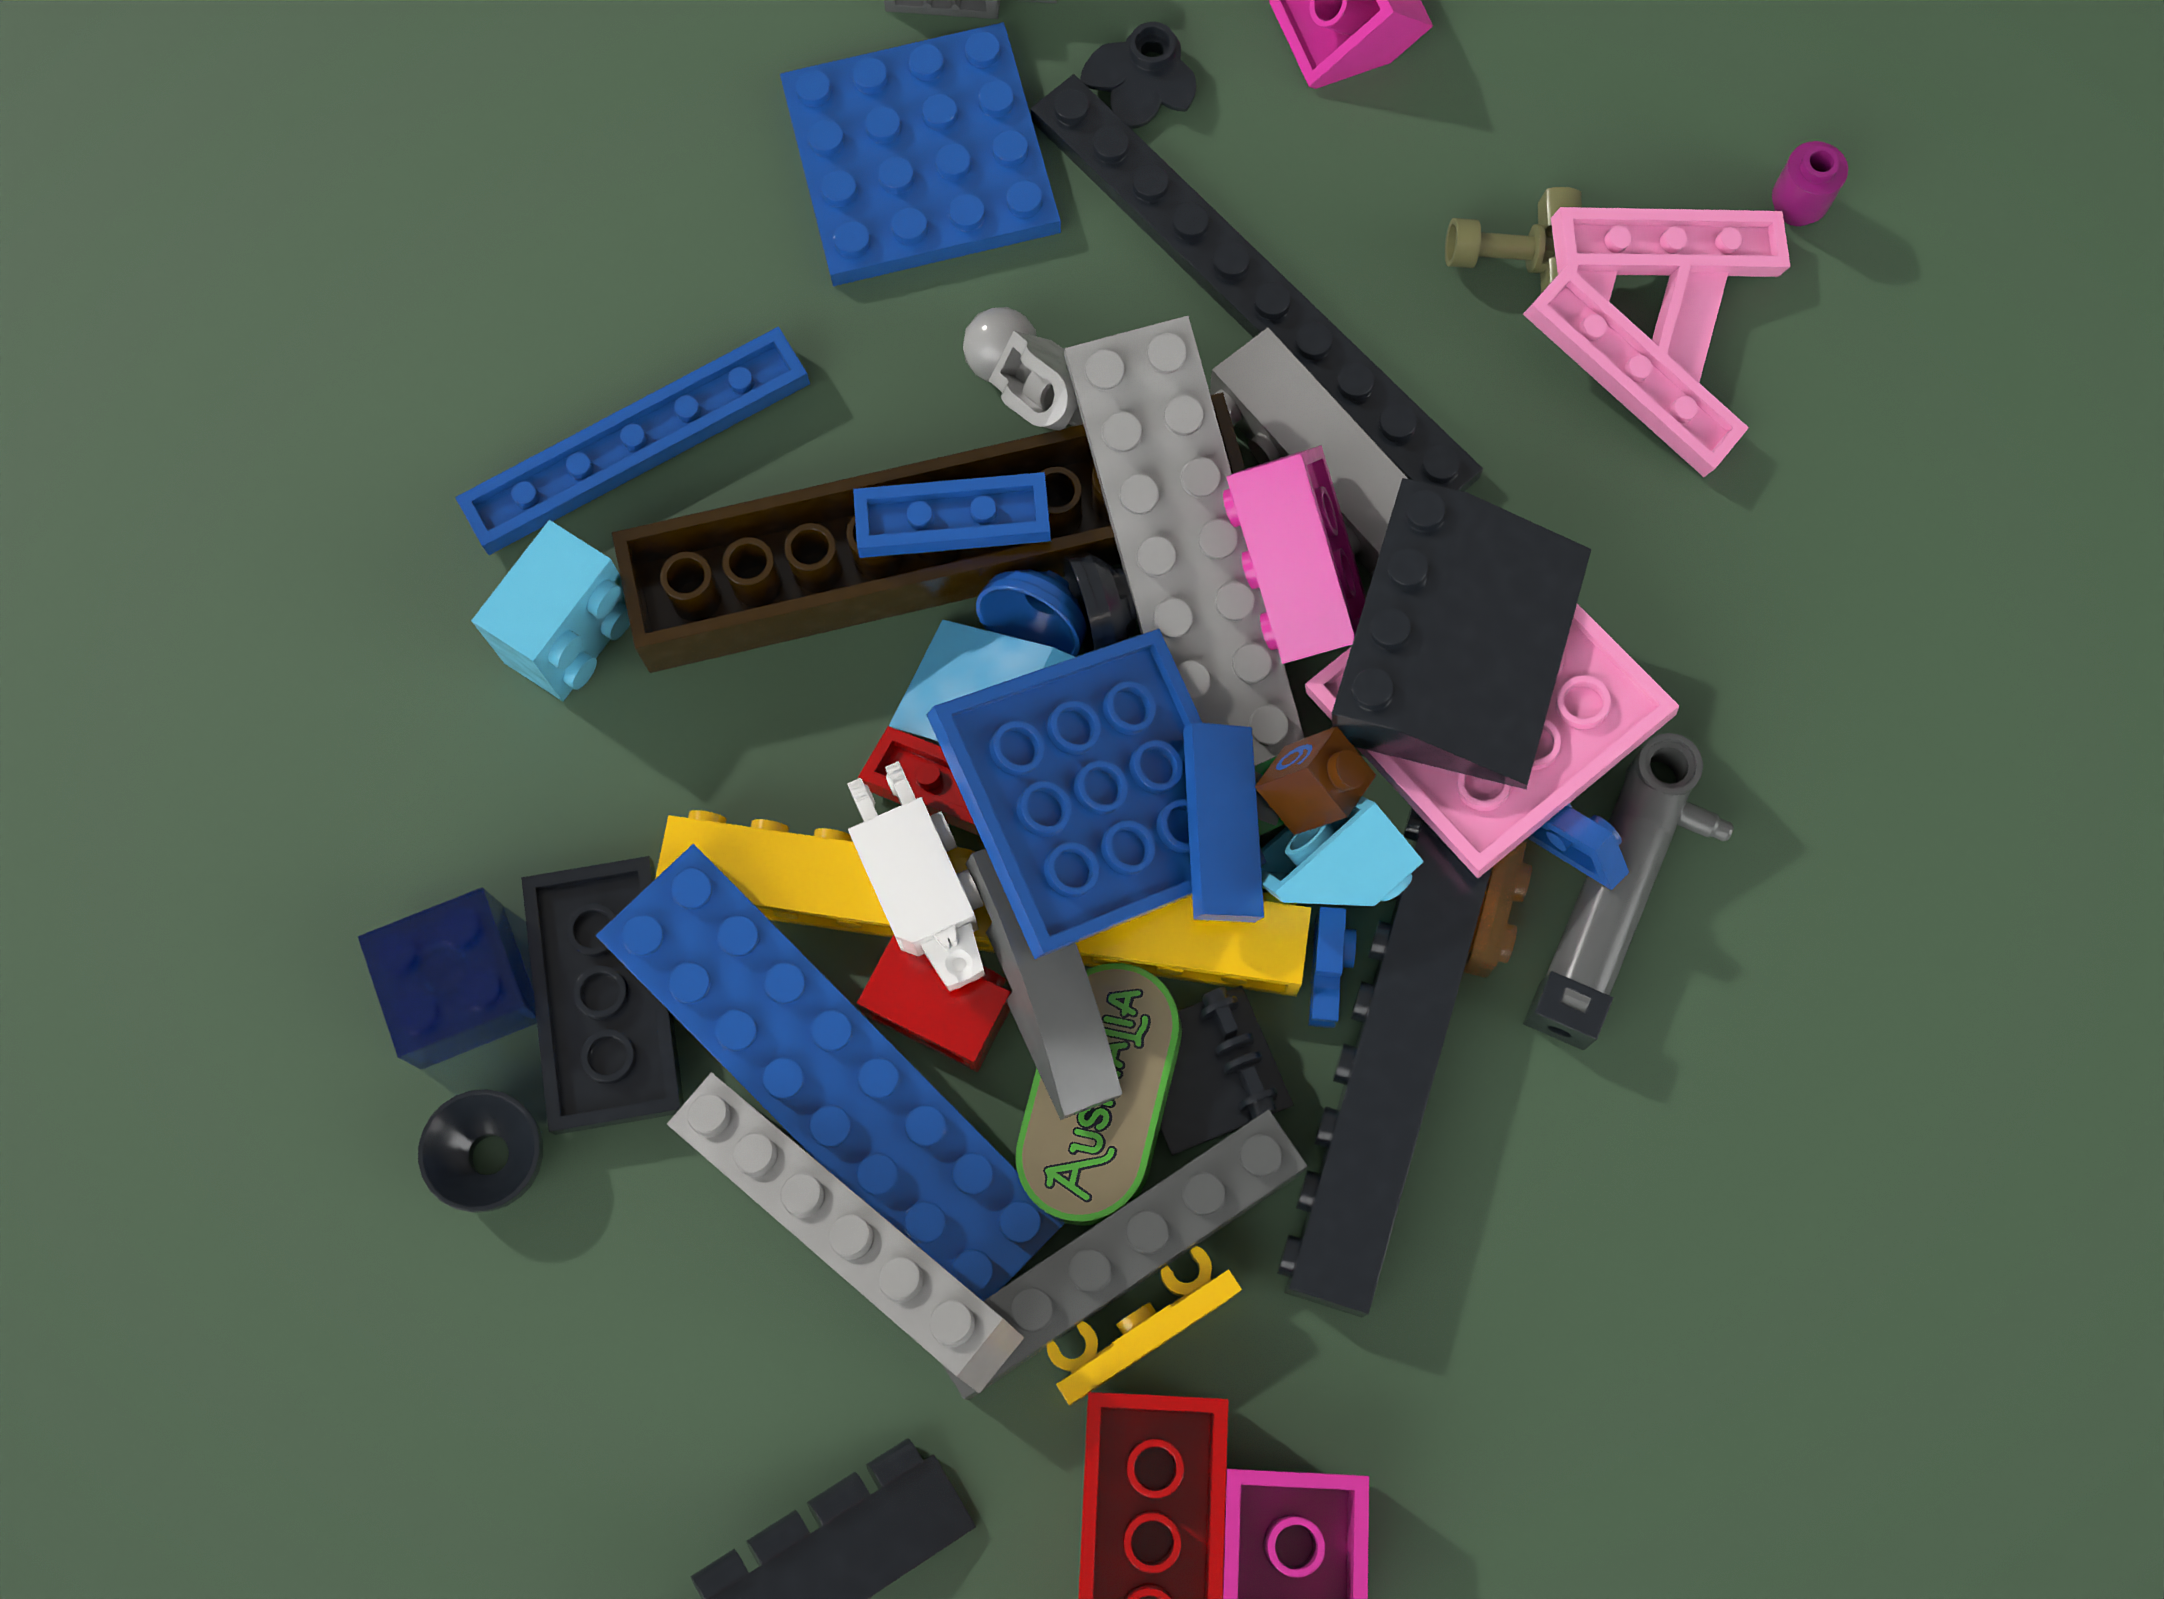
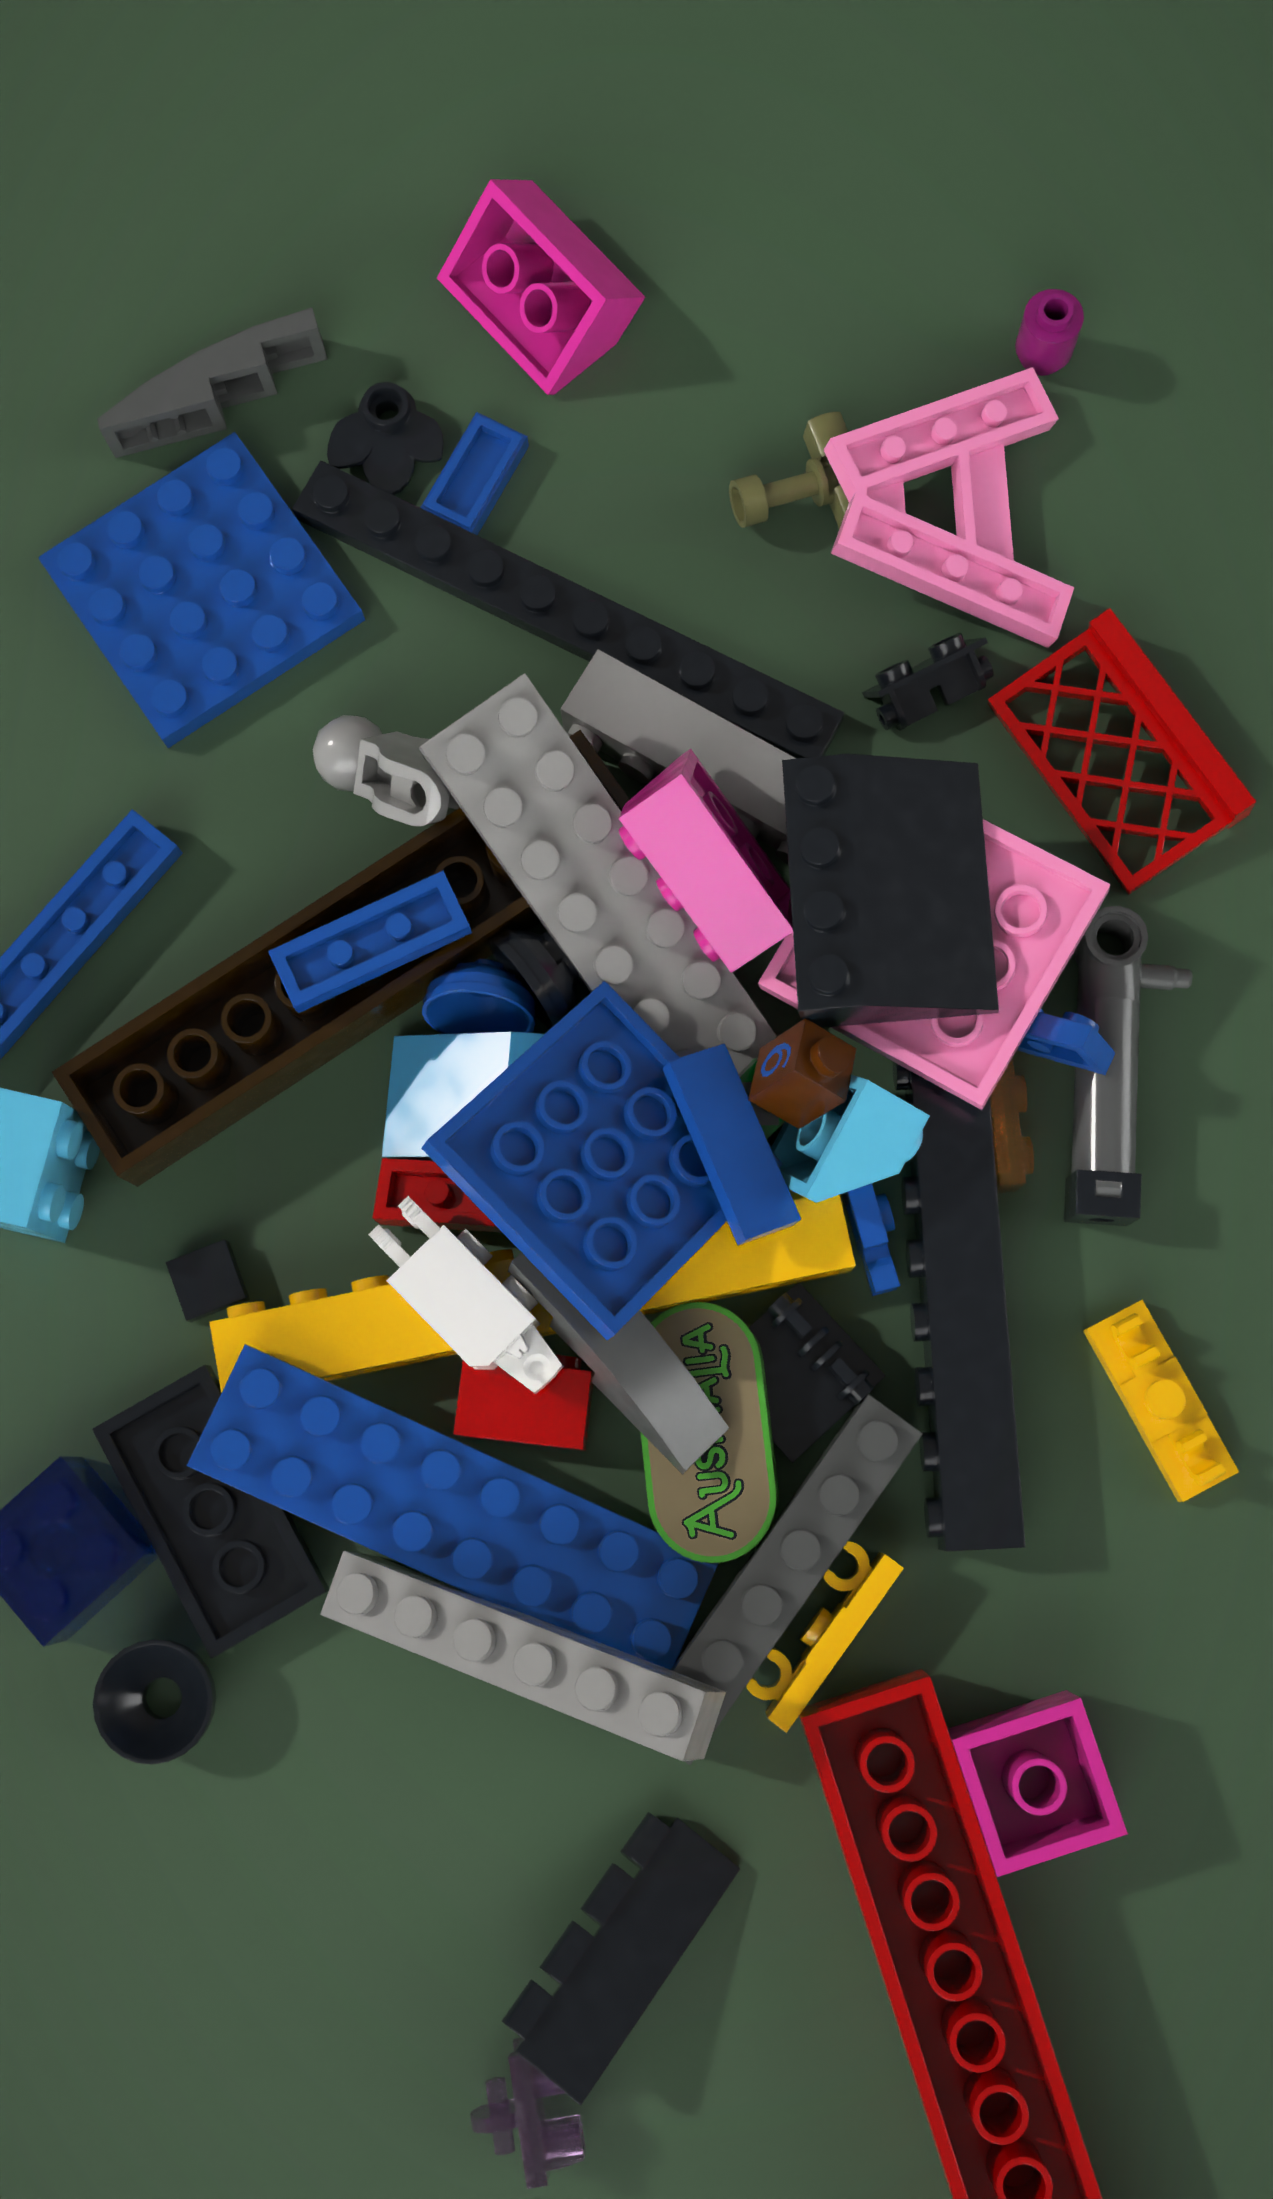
camera: 15 degrees left, 5 degrees up
(681, 781) = (207, 1281): none -> black tile
(1215, 134) = (476, 473): none -> blue tile
(1555, 1229) = (1161, 1401): none -> yellow plate
(1602, 463) = (906, 688): none -> black hinge
(1792, 581) = (1164, 720): none -> red fence

